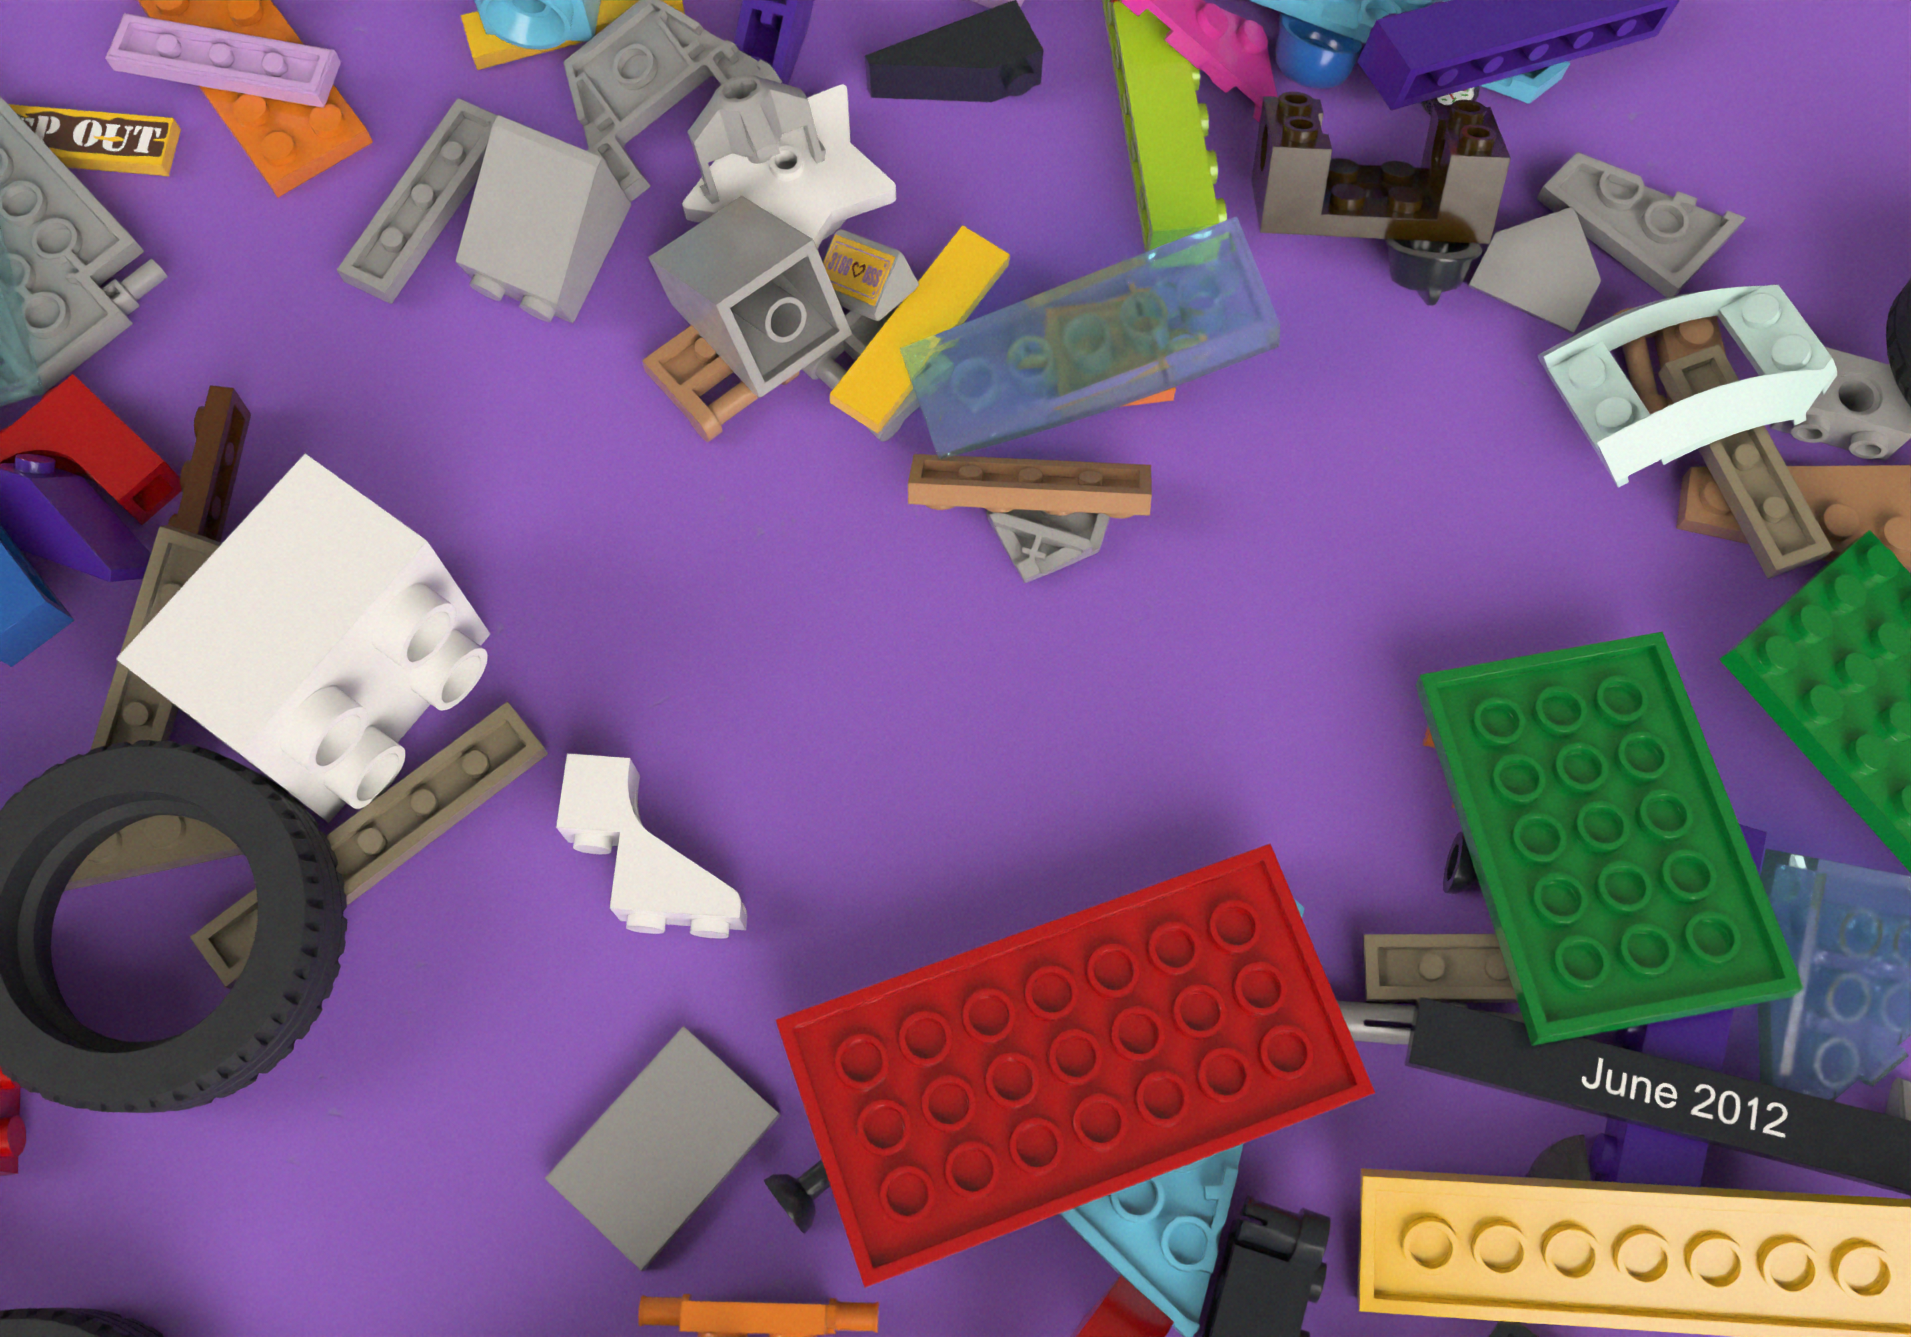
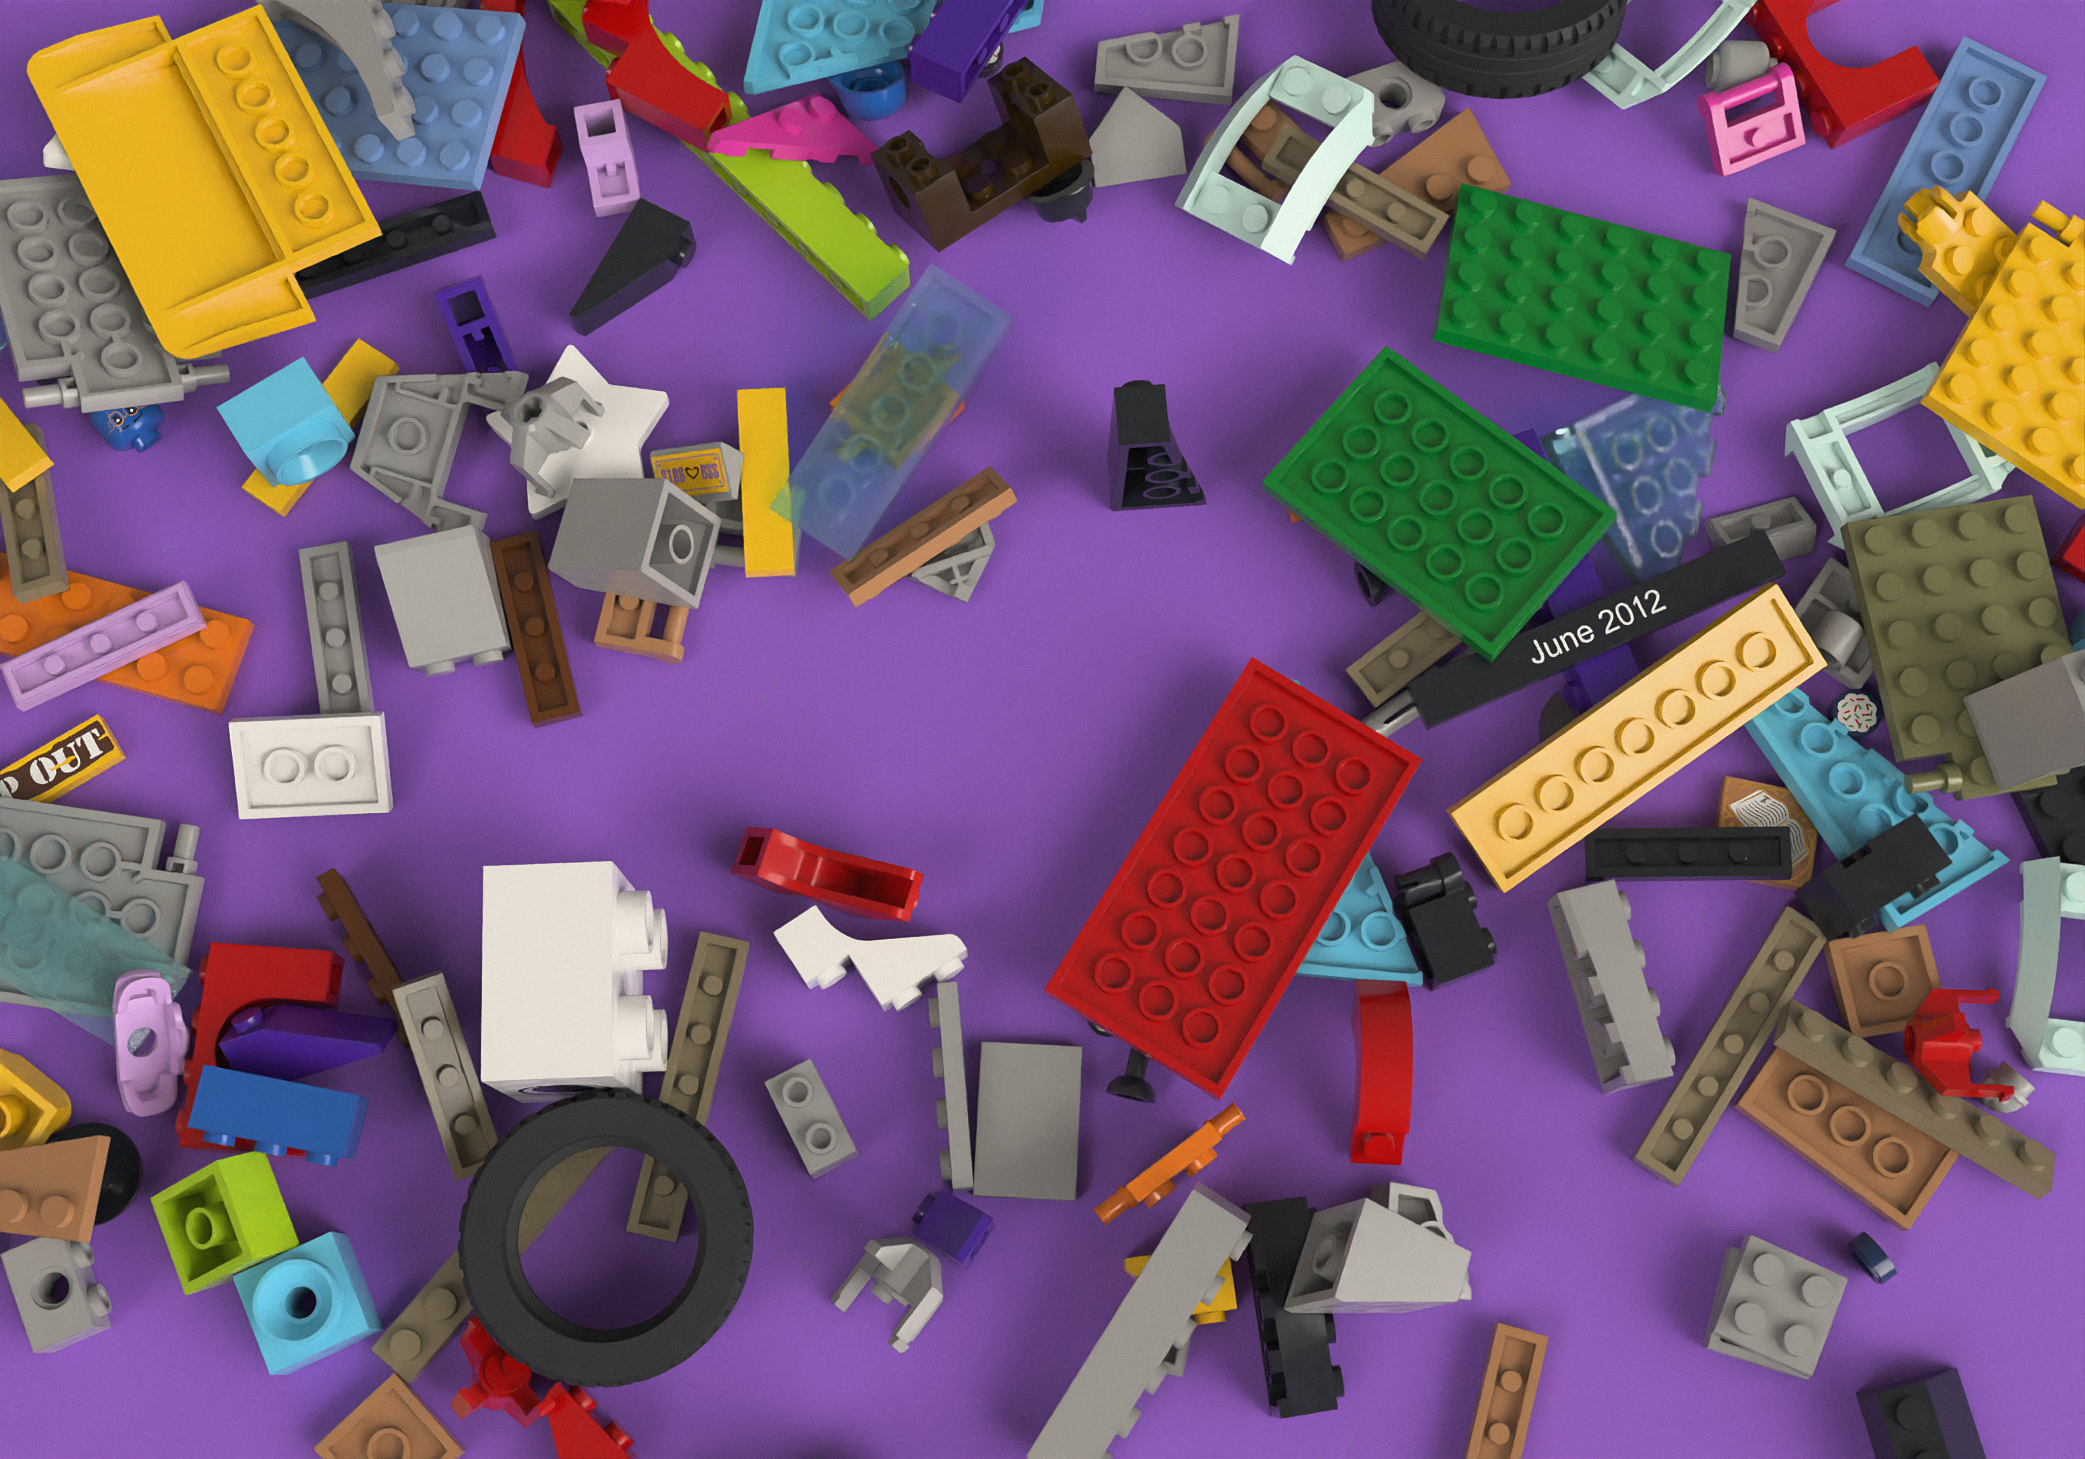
camera: 40 degrees left, 5 degrees up
(301, 287) = (311, 765): none -> white plate
(402, 1210) = (900, 1272): none -> light grey piece
(453, 969) = (812, 1118): none -> light grey brick
(484, 1200) = (952, 1227): none -> dark purple slope
(599, 1072) = (952, 1110): none -> light grey plate
(600, 318) = (536, 629): none -> reddish brown plate
(666, 739) = (830, 877): none -> red arch
(1310, 554) = (1143, 453): none -> black wedge

